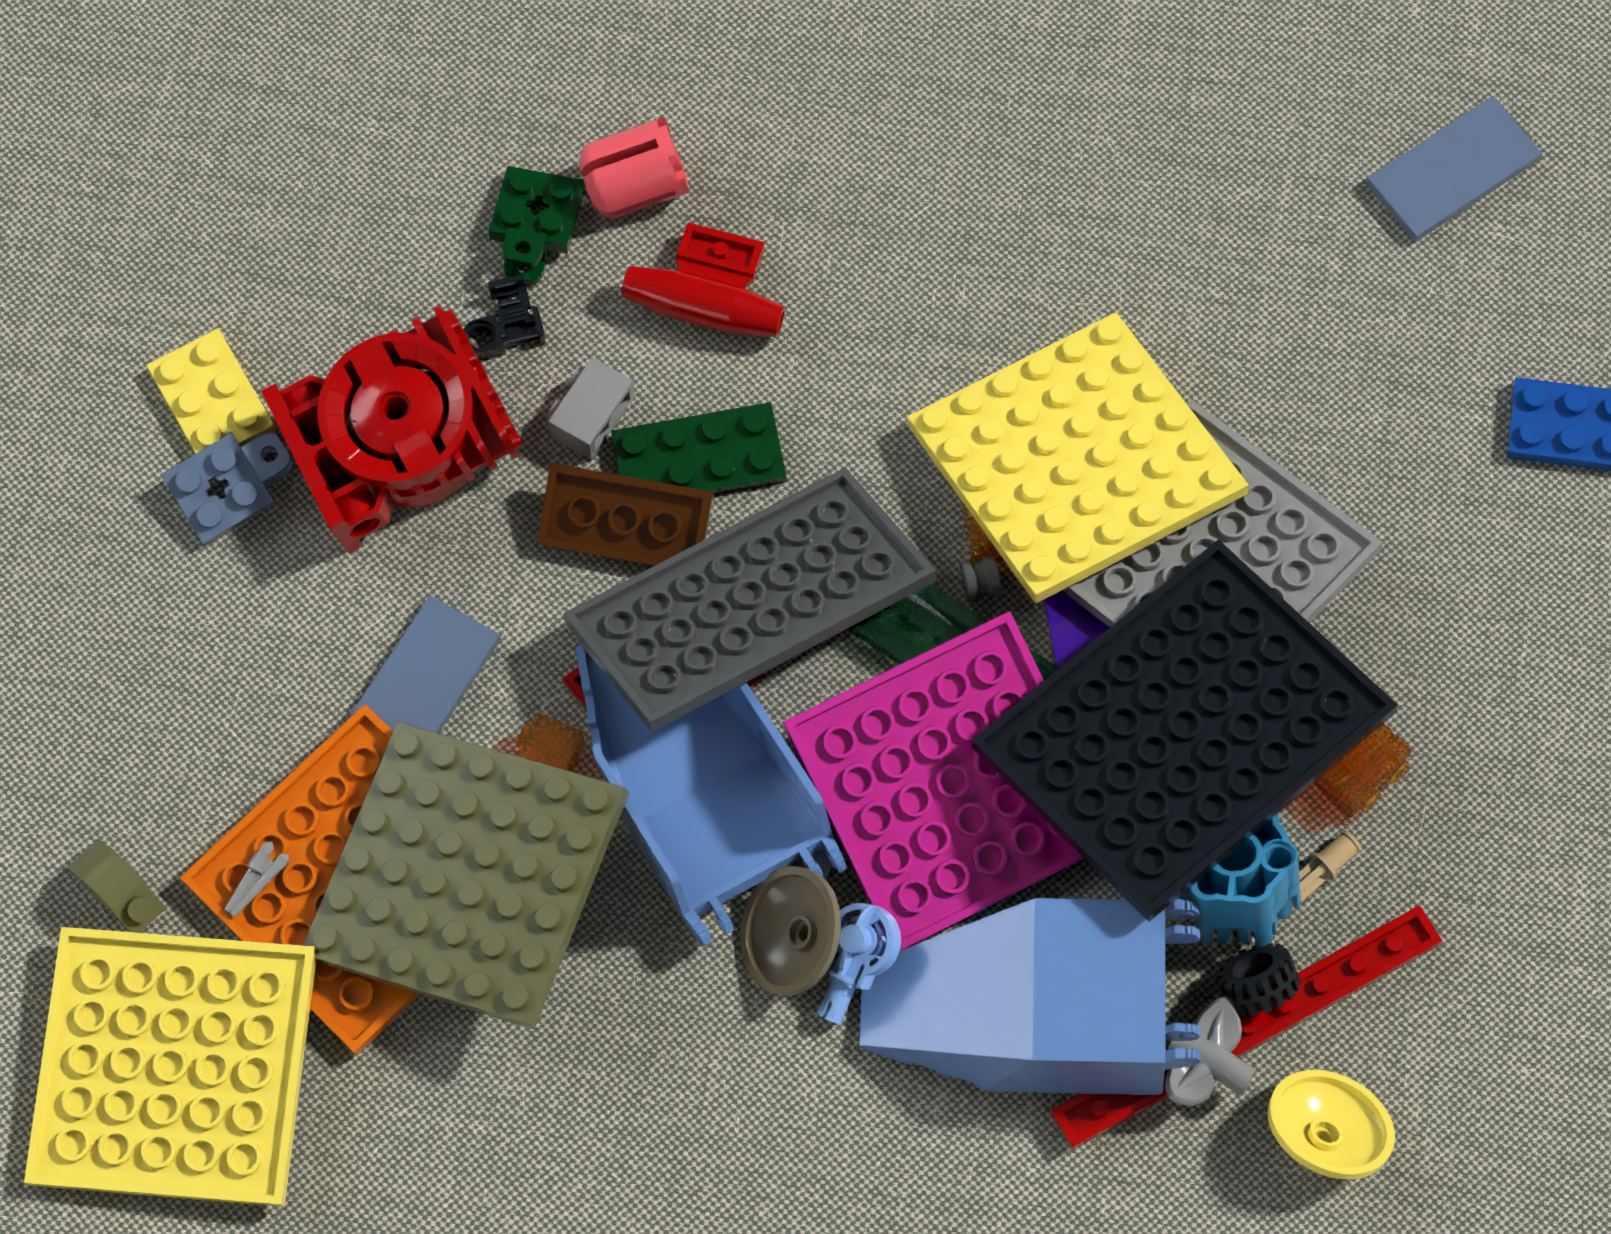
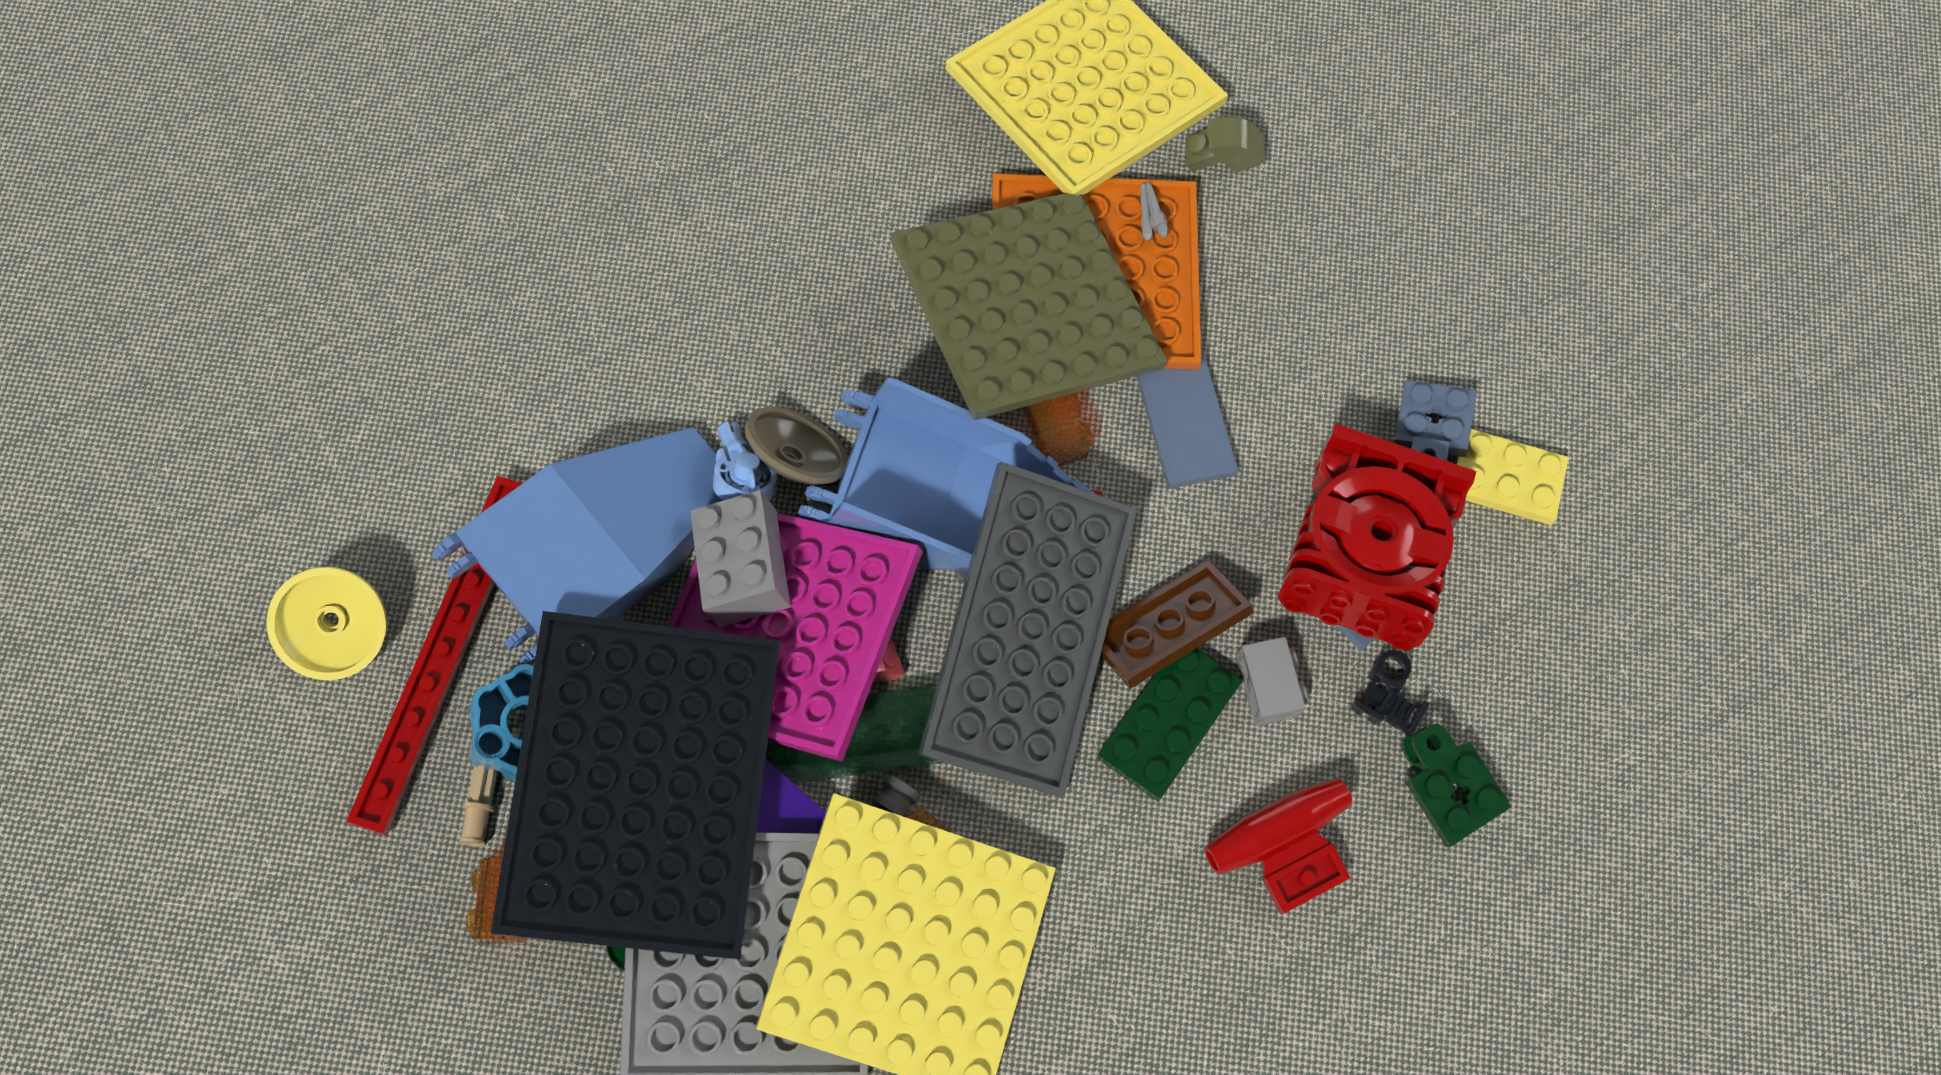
camera: 130 degrees right, 0 degrees up
(633, 169) = (1426, 879): coral cylinder -> none
(935, 858) = (739, 559): none -> light grey brick
(1219, 1037) = (449, 598): light grey plant -> none
(1259, 979) = (436, 670): black tyre -> none

